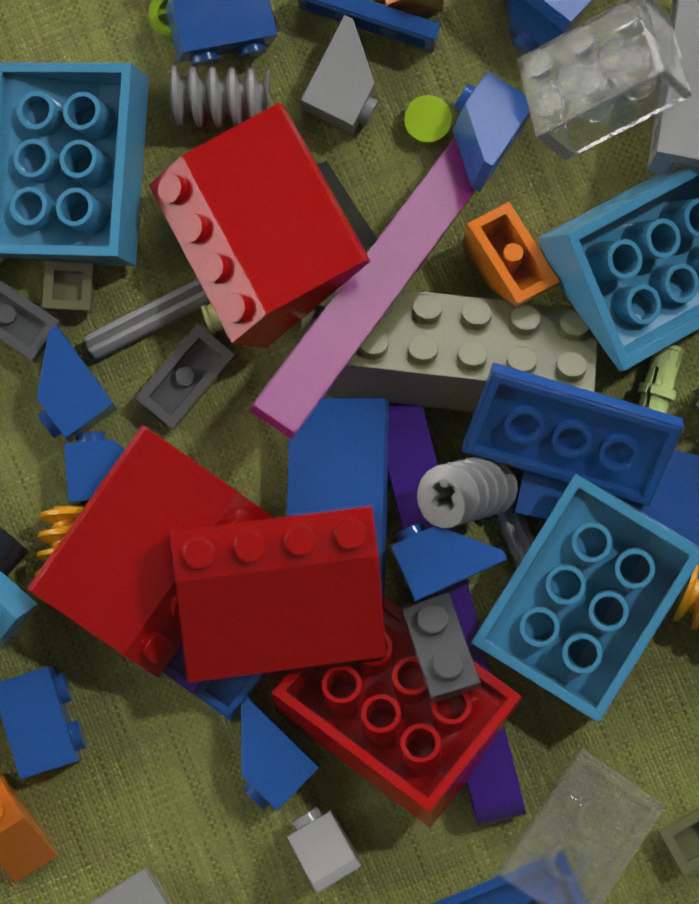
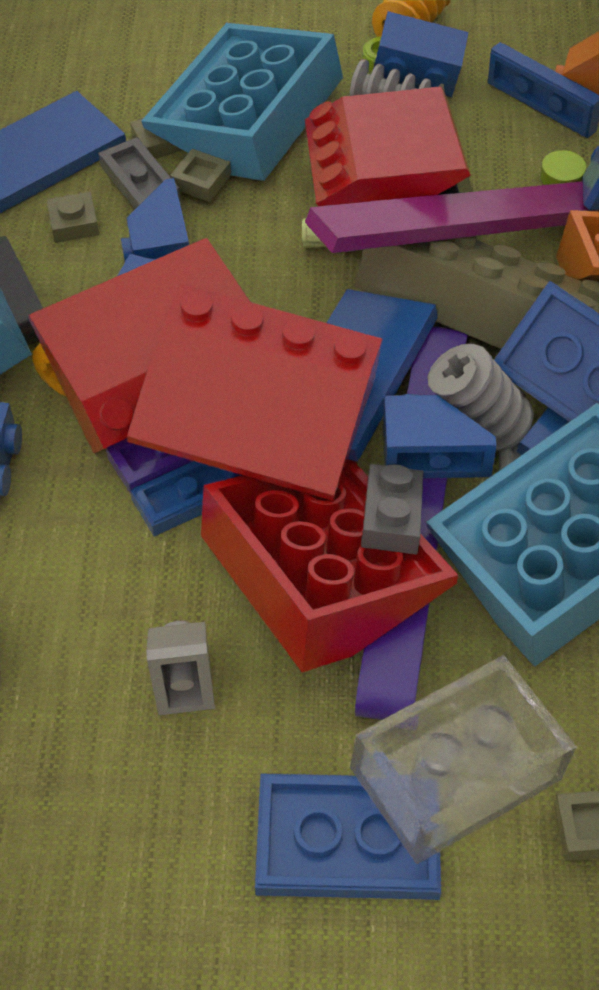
camera: 20 degrees right, 30 degrees down
(146, 320) = (249, 218): light grey axle -> none
(185, 377) = (269, 259): dark grey plate -> none
(270, 759) = (173, 569): blue slope -> none
(343, 83) = (497, 121): light grey slope -> none

